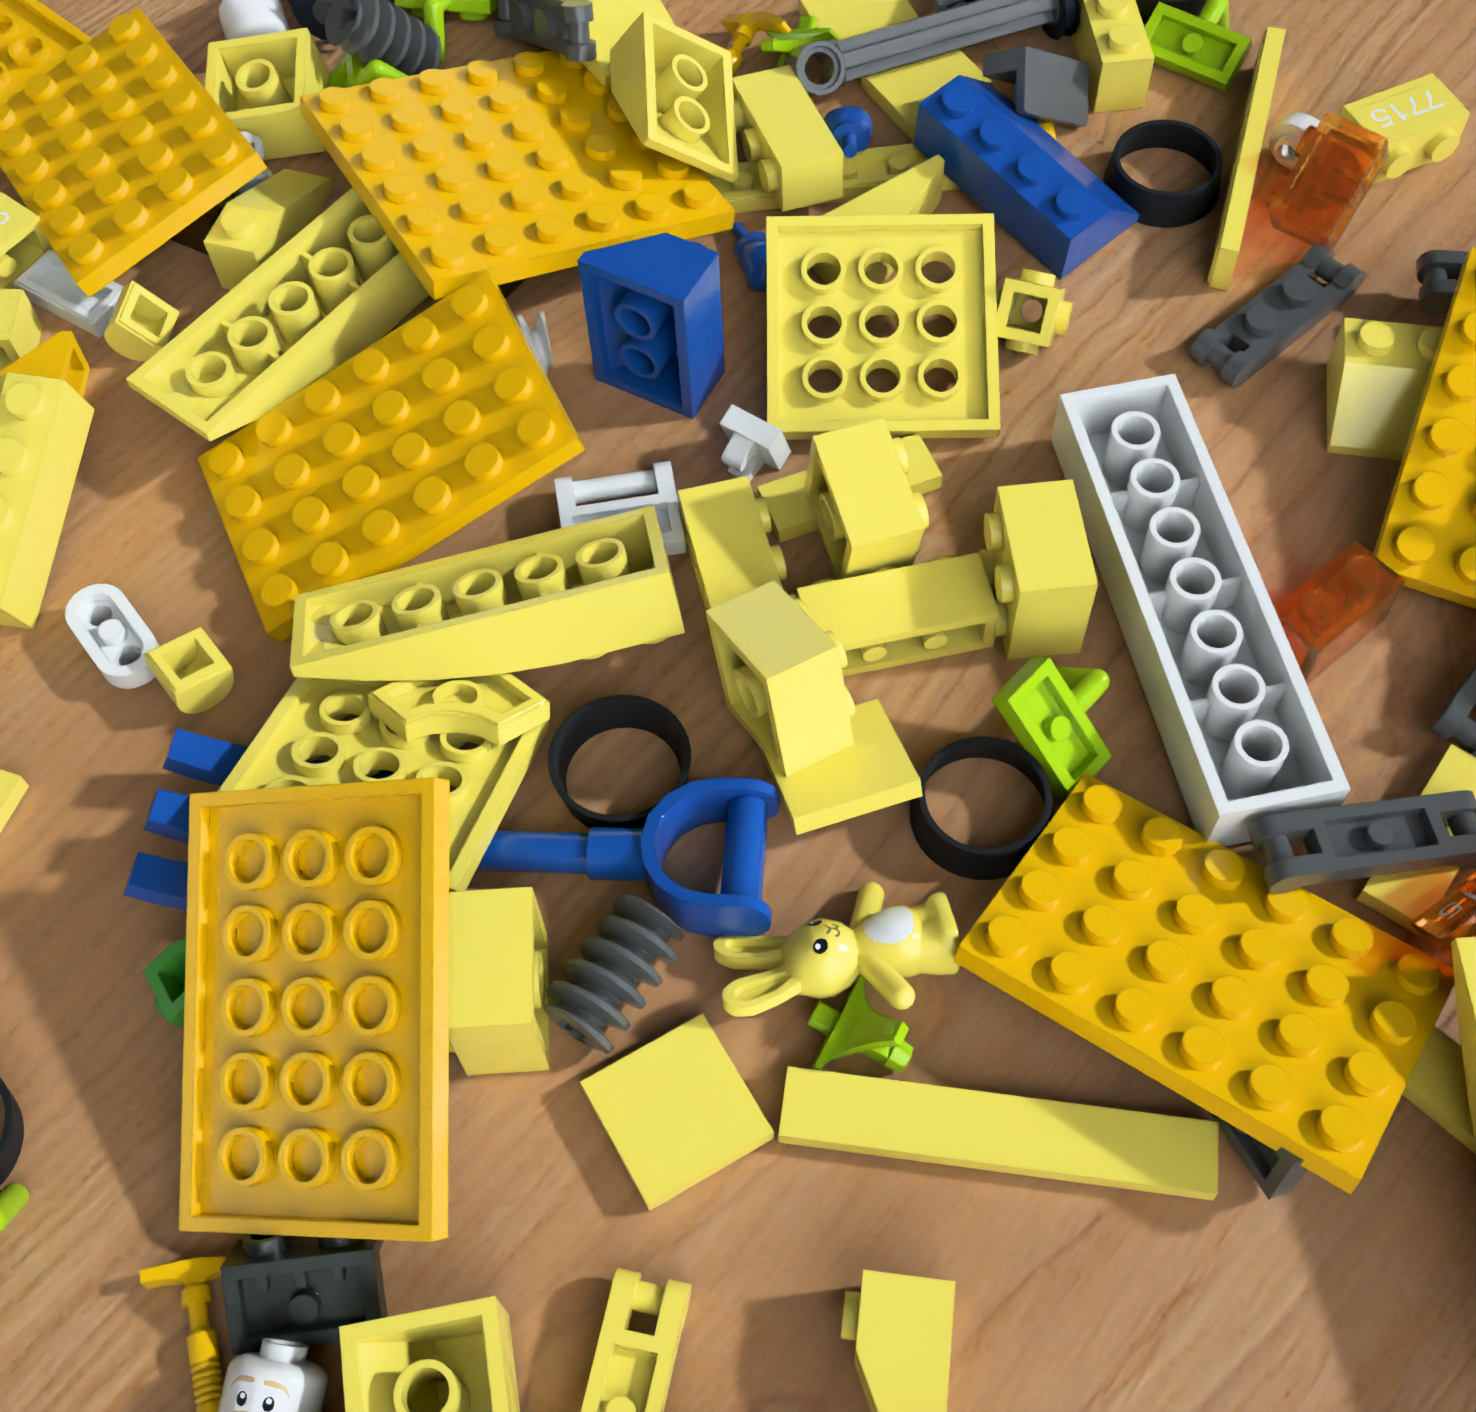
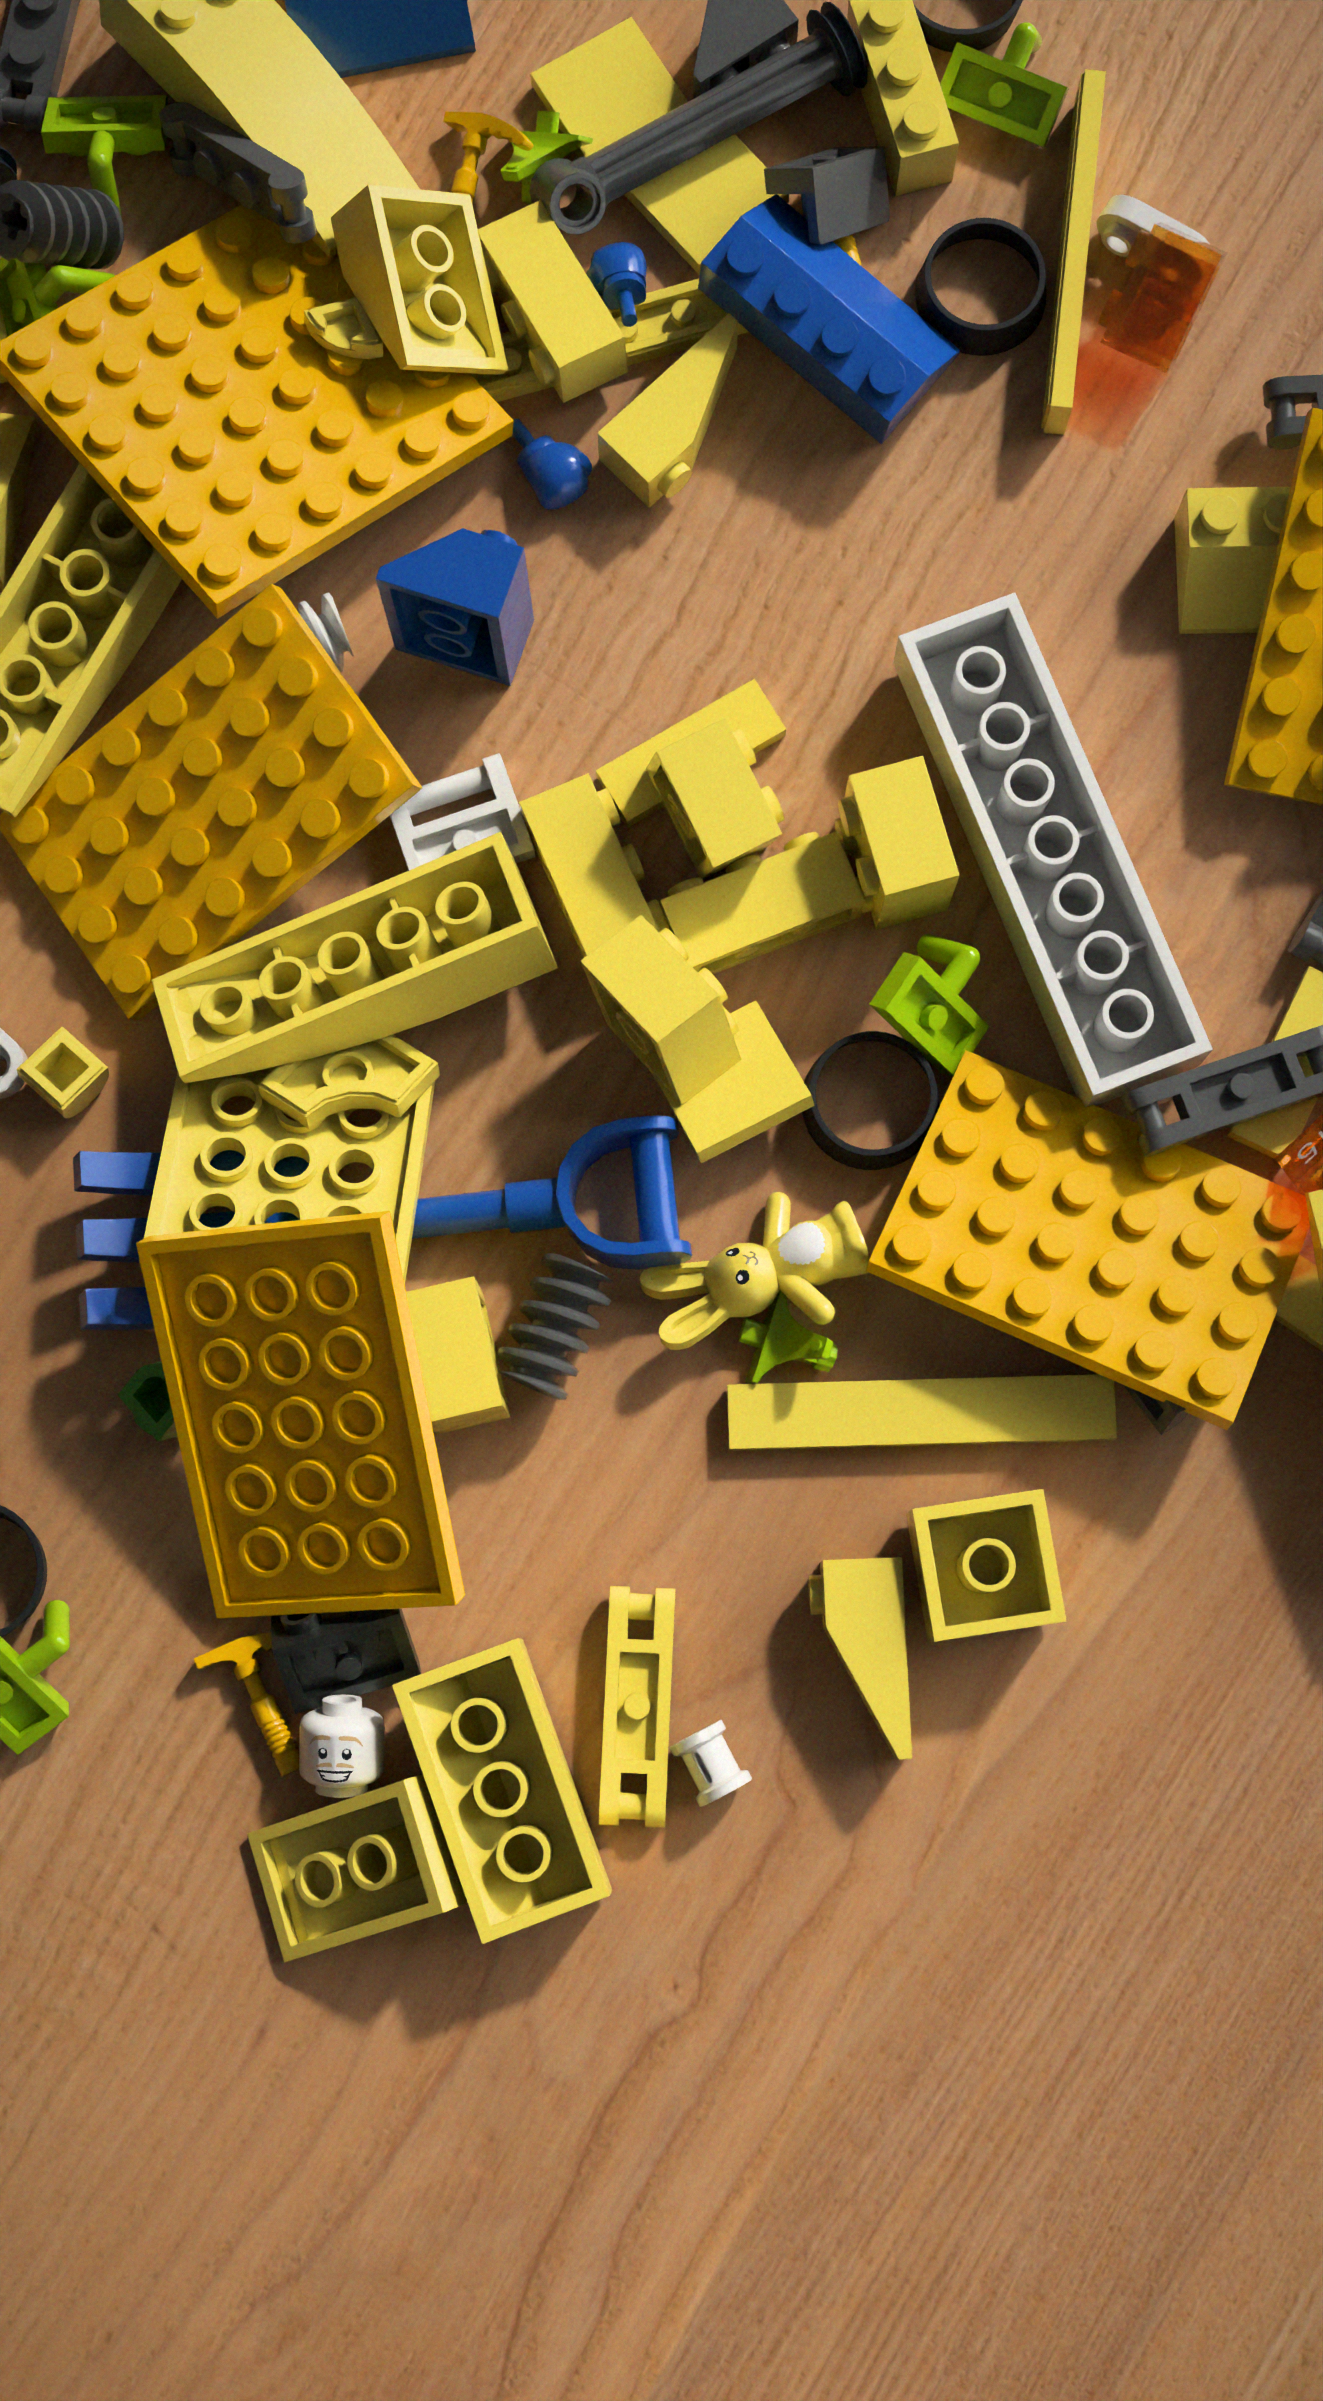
camera: 10 degrees left, 20 degrees up
(603, 120) = (344, 326): none -> light yellow tile
(609, 714) = (500, 1054): black tyre -> none
(676, 1111) = (634, 1438): light yellow tile -> none
(751, 443) = (581, 722): white tile -> none
(907, 245) = (788, 516): light yellow piece -> none
(1027, 335) = (854, 513): light yellow brick -> none
(1054, 1312) = (985, 1565): none -> light yellow brick
(1277, 316) = (1118, 469): dark grey plate -> none
(1337, 608) = (1190, 841): clear orange brick -> none
(1418, 120) = (1243, 190): light yellow brick -> none

